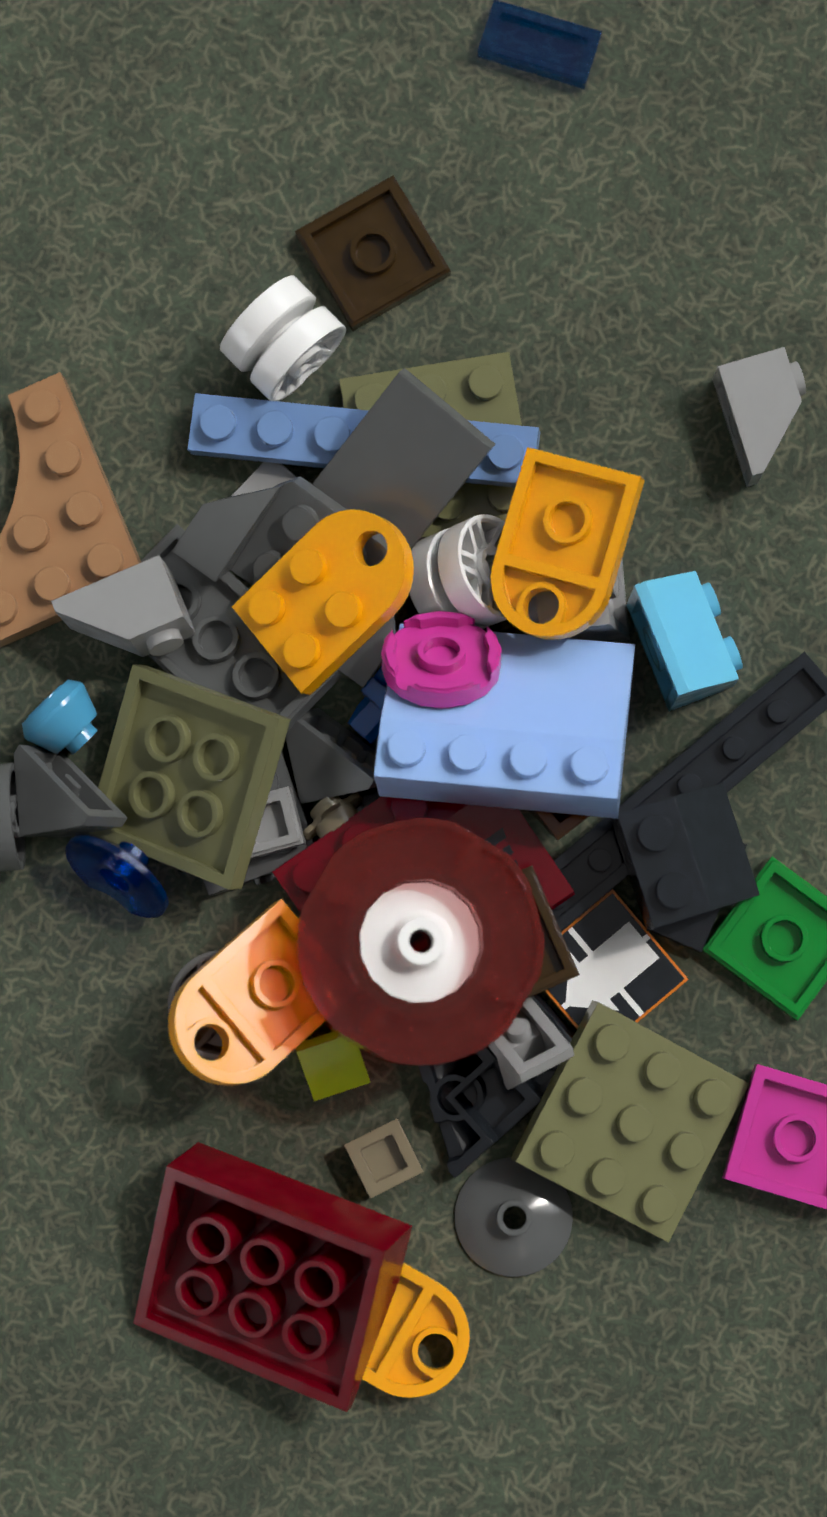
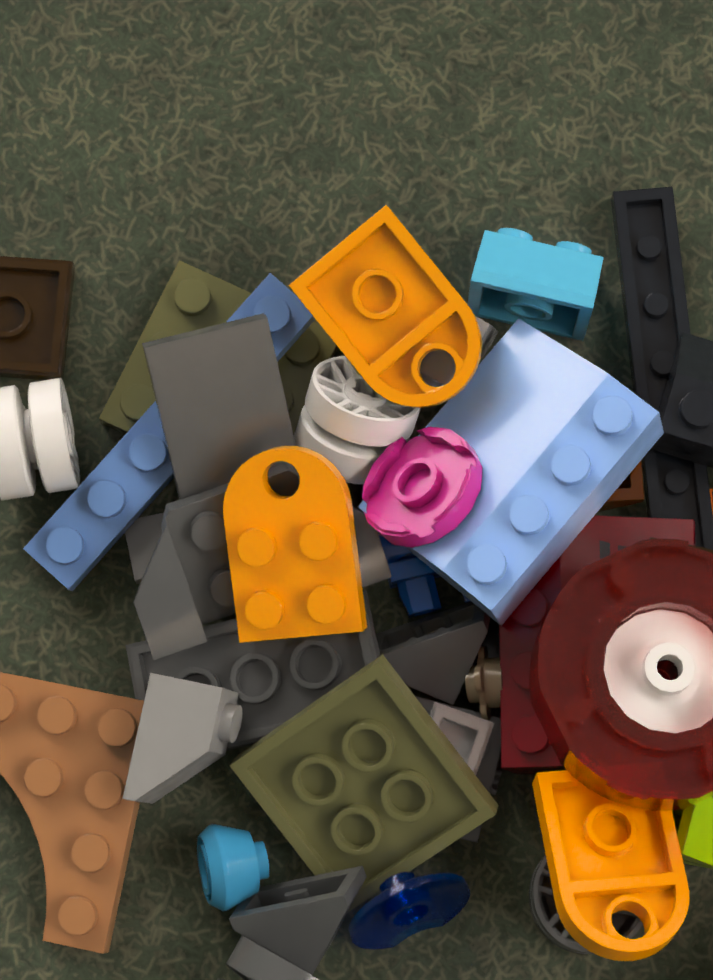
camera: 55 degrees left, 5 degrees down
(758, 405) = (378, 89): light grey slope -> none

